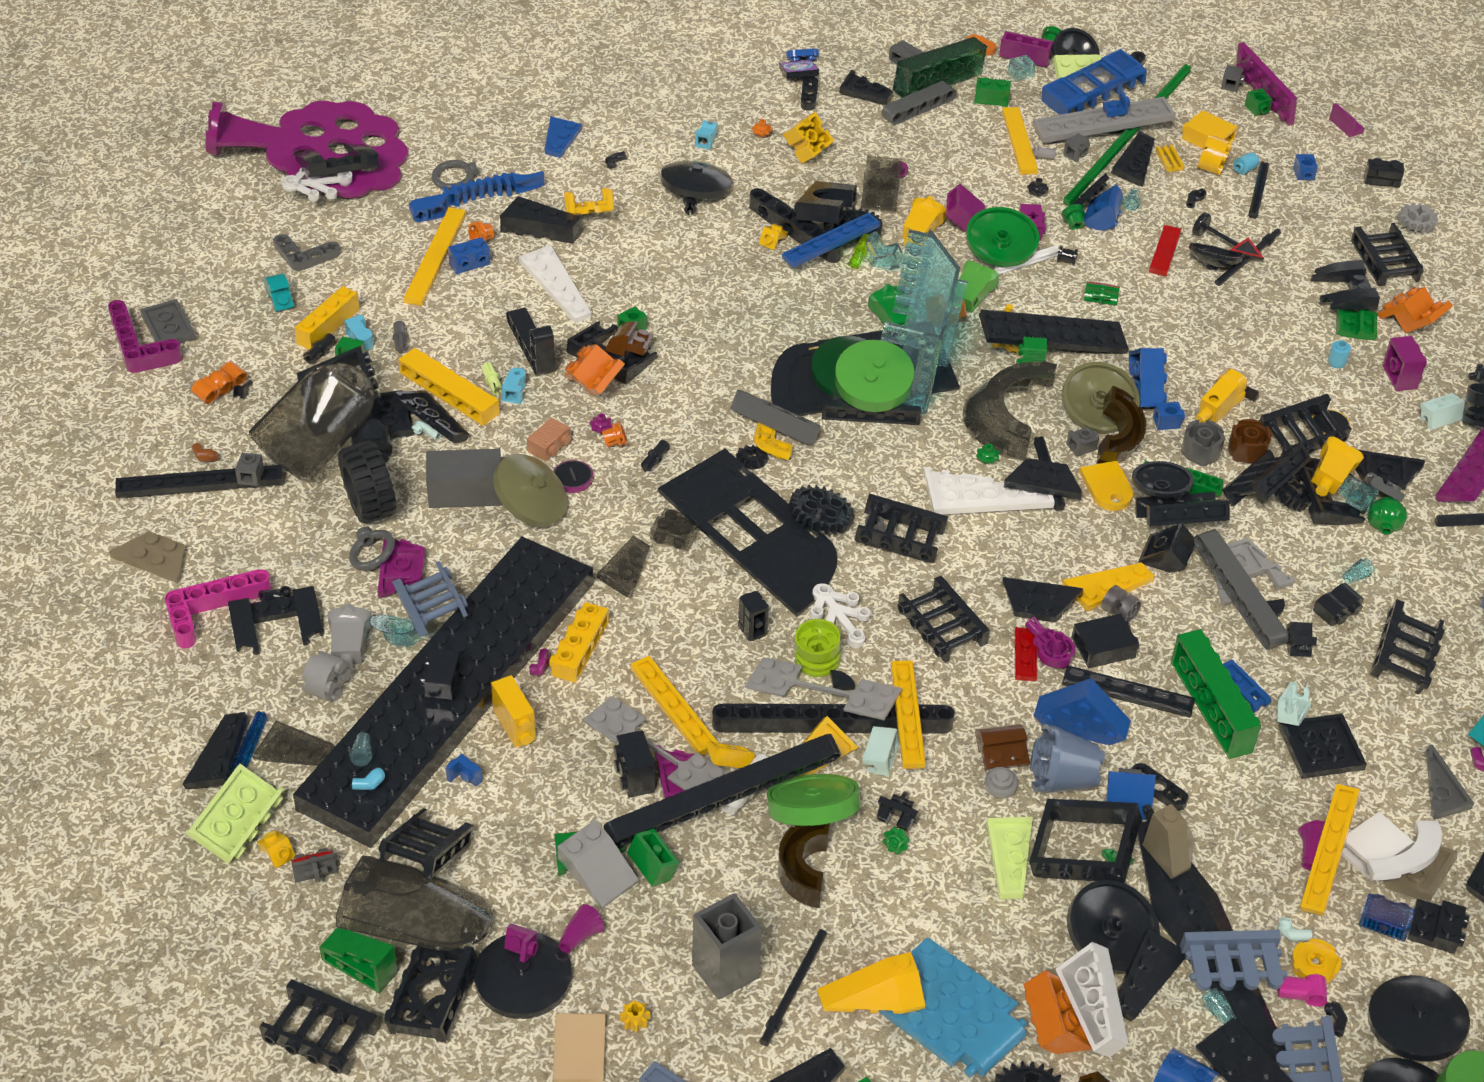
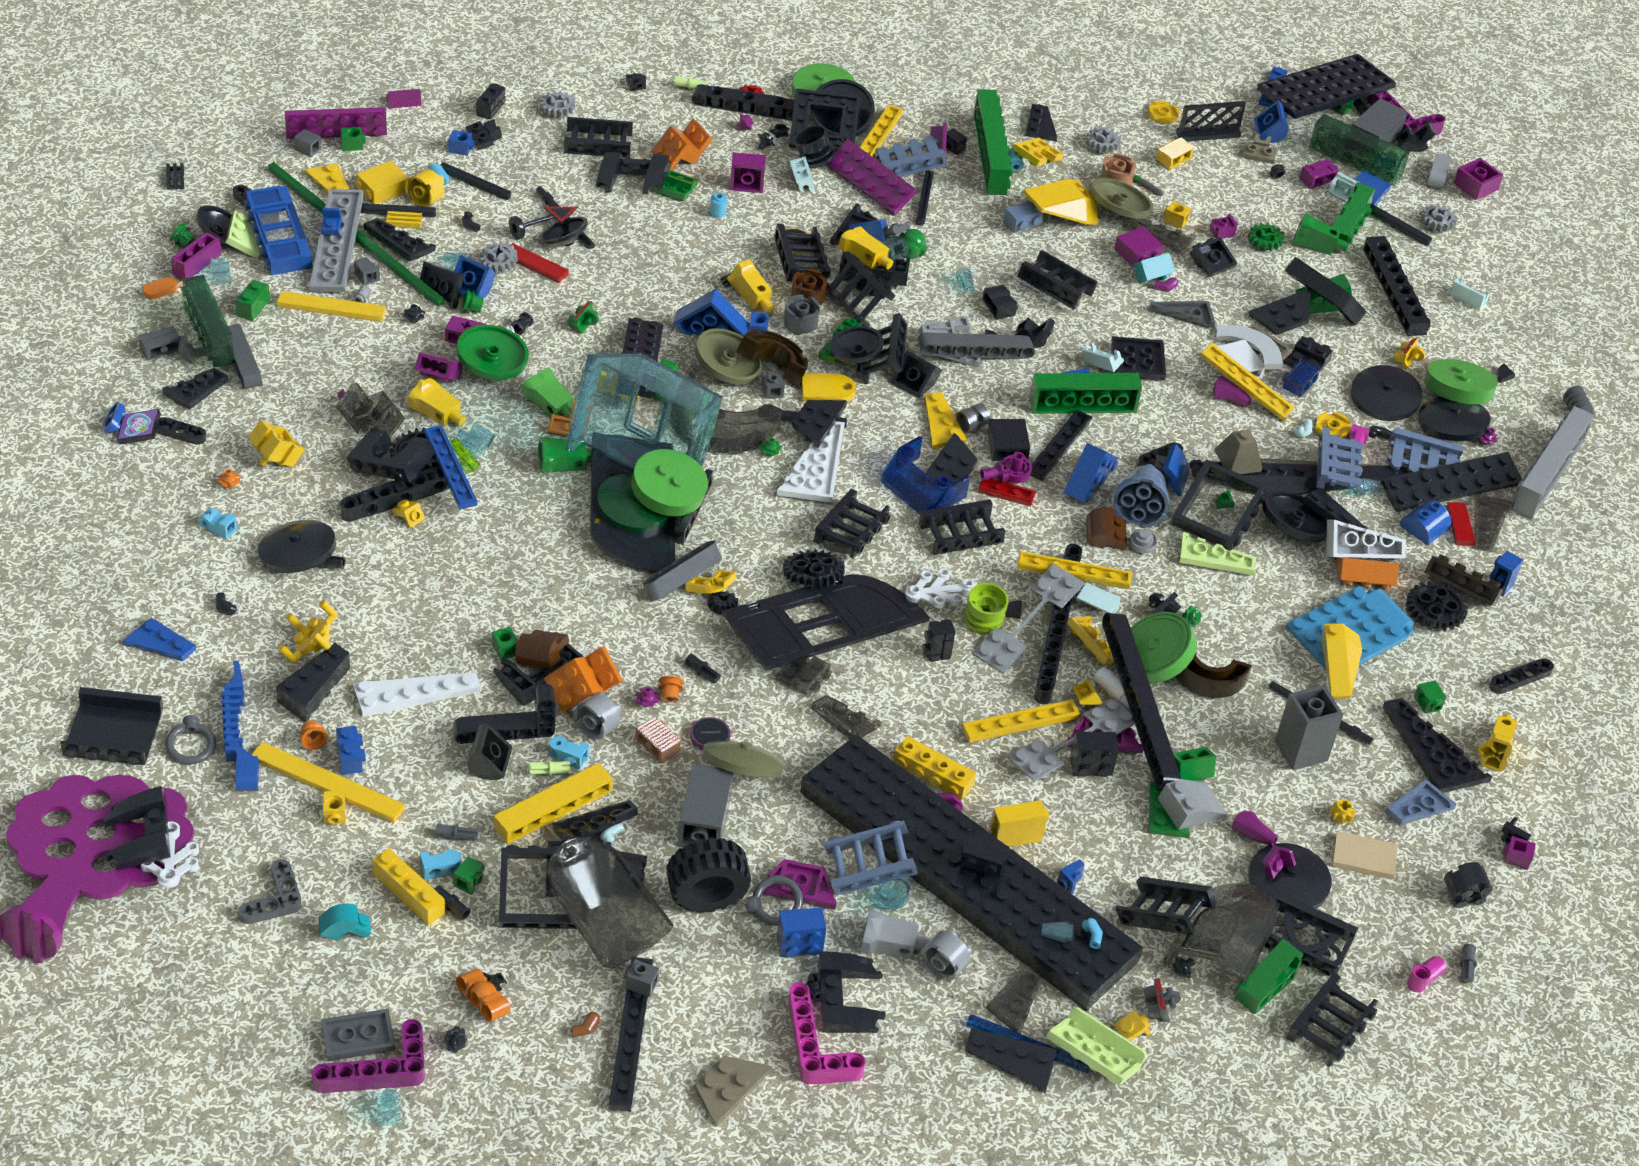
camera: 80 degrees left, 0 degrees up
(95, 354) = (389, 1108): none -> clear light blue brick
(171, 377) = (455, 1039): none -> black plant
(328, 567) = (801, 932): none -> blue brick
(403, 261) = (334, 807): none -> yellow brick
(453, 134) = (113, 726): none -> black panel
(489, 332) = (489, 754): none -> pearl dark grey brick
(556, 390) = (597, 716): none -> light grey brick
(976, 582) = (915, 486): none -> clear blue windscreen
(1133, 20) = (175, 168): none -> black tile
(1151, 222) = (499, 257): none -> light grey gear
(1173, 139) = (368, 208): none -> black axle
(1192, 104) = (328, 177): none -> yellow wing
(1334, 179) = (484, 134): none -> black plate
(1371, 465) = (874, 228): none -> blue panel

